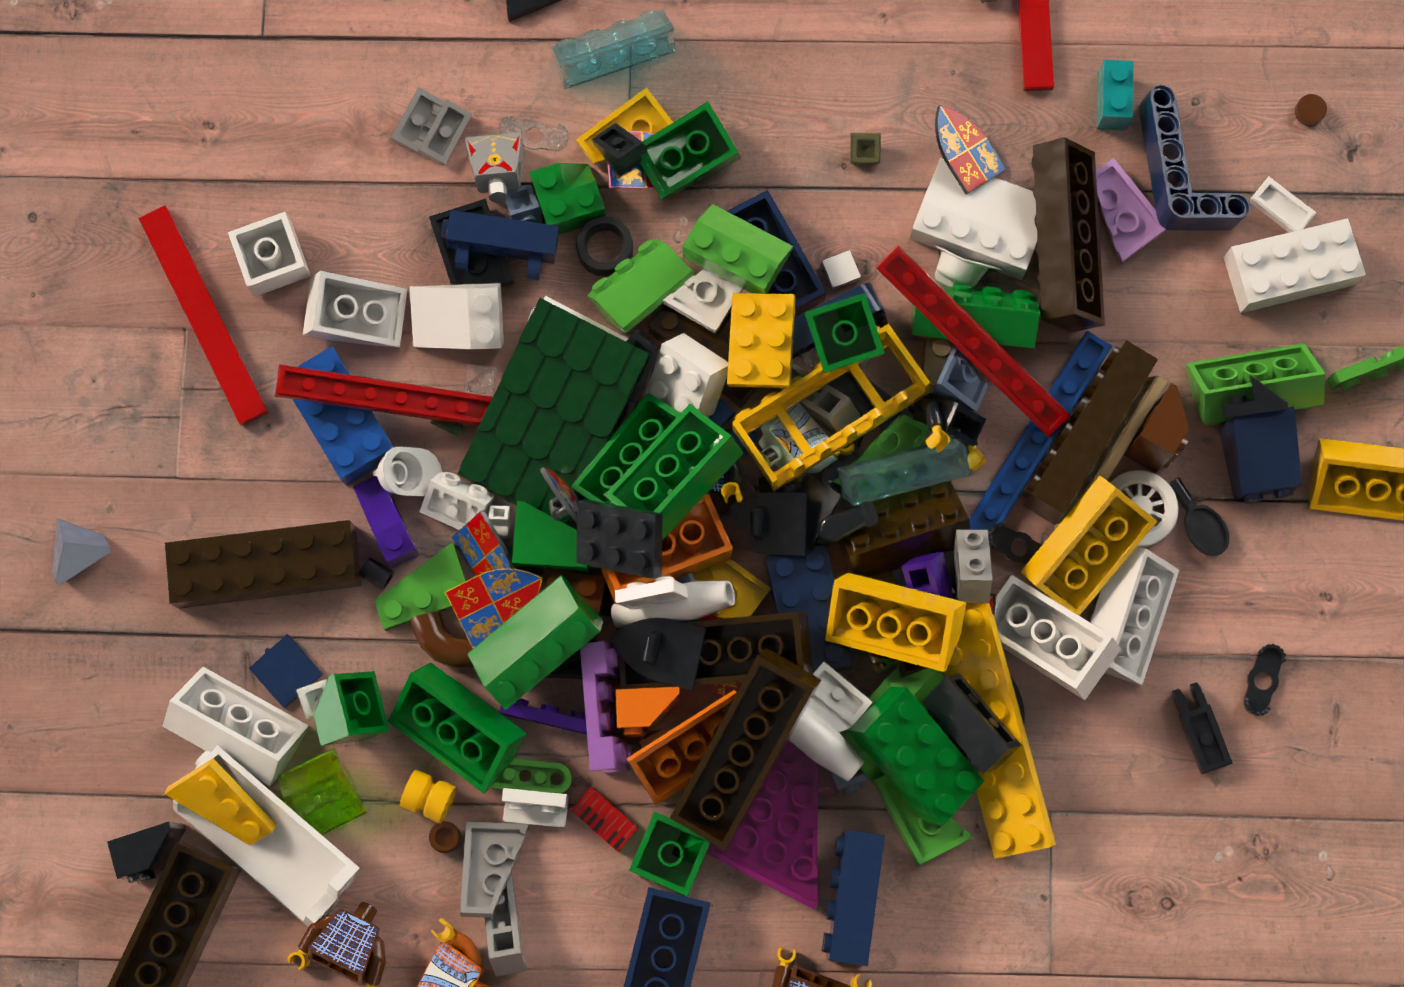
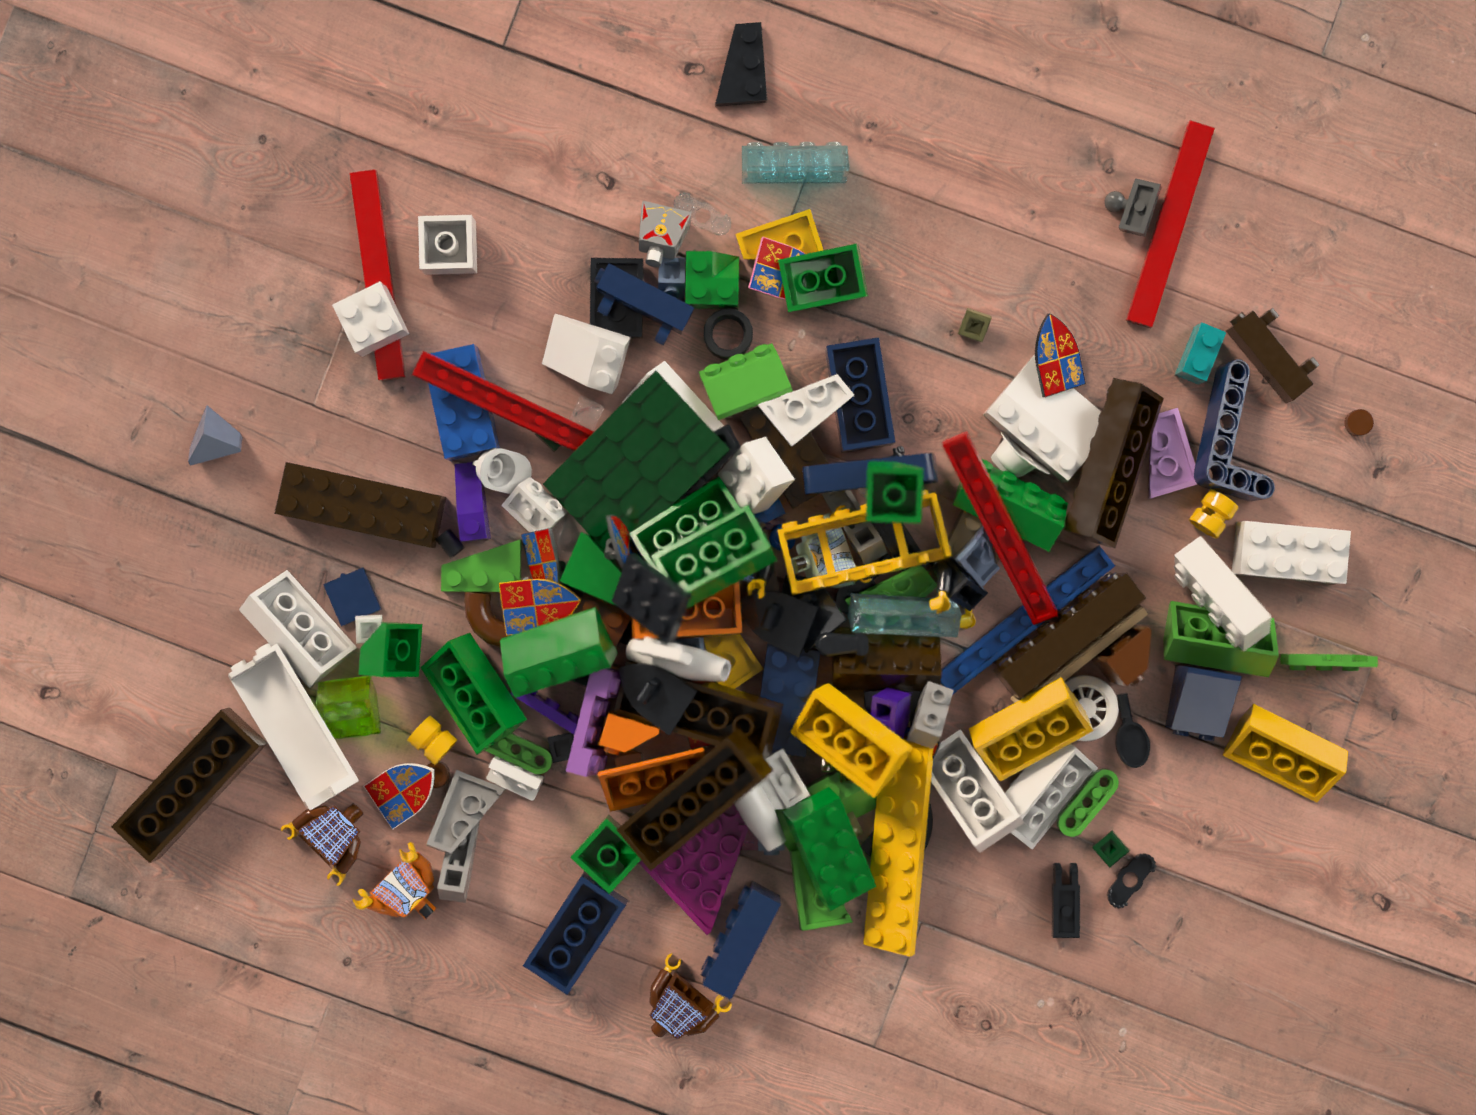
camera: 20 degrees right, 10 degrees up
(144, 852) = (191, 707): black slope -> none
(210, 359) = (370, 319): none -> white brick
(221, 801) = (267, 689): yellow wing -> none
(354, 310) = (503, 317): white slope -> none
(412, 868) = (401, 791): none -> shield
(431, 126) = (618, 177): light grey slope -> none
(500, 519) = (563, 536): white piece -> none
(575, 755) = (560, 746): none -> black tile
(604, 819) = (566, 805): red tile -> none
(620, 148) = (767, 258): black slope -> none
(736, 250) = (833, 385): bright green slope -> none
(761, 340) = (825, 470): yellow plate -> none
(841, 270) = (916, 422): white tile -> none
(971, 723) = (882, 838): black brick -> none
(1002, 537) = (964, 693): black piece -> none
(1188, 72) = (1270, 356): none -> dark brown brick
(1192, 601) = (1099, 796): none -> bright green plate
(1195, 253) = (1213, 513): none -> yellow wheel
(1228, 652) = (1111, 848): none -> dark green tile
(1238, 329) = (1221, 594): none -> white brick
(1262, 401) = (1217, 663): black slope -> none
(1281, 206) = (1301, 497): white tile -> none

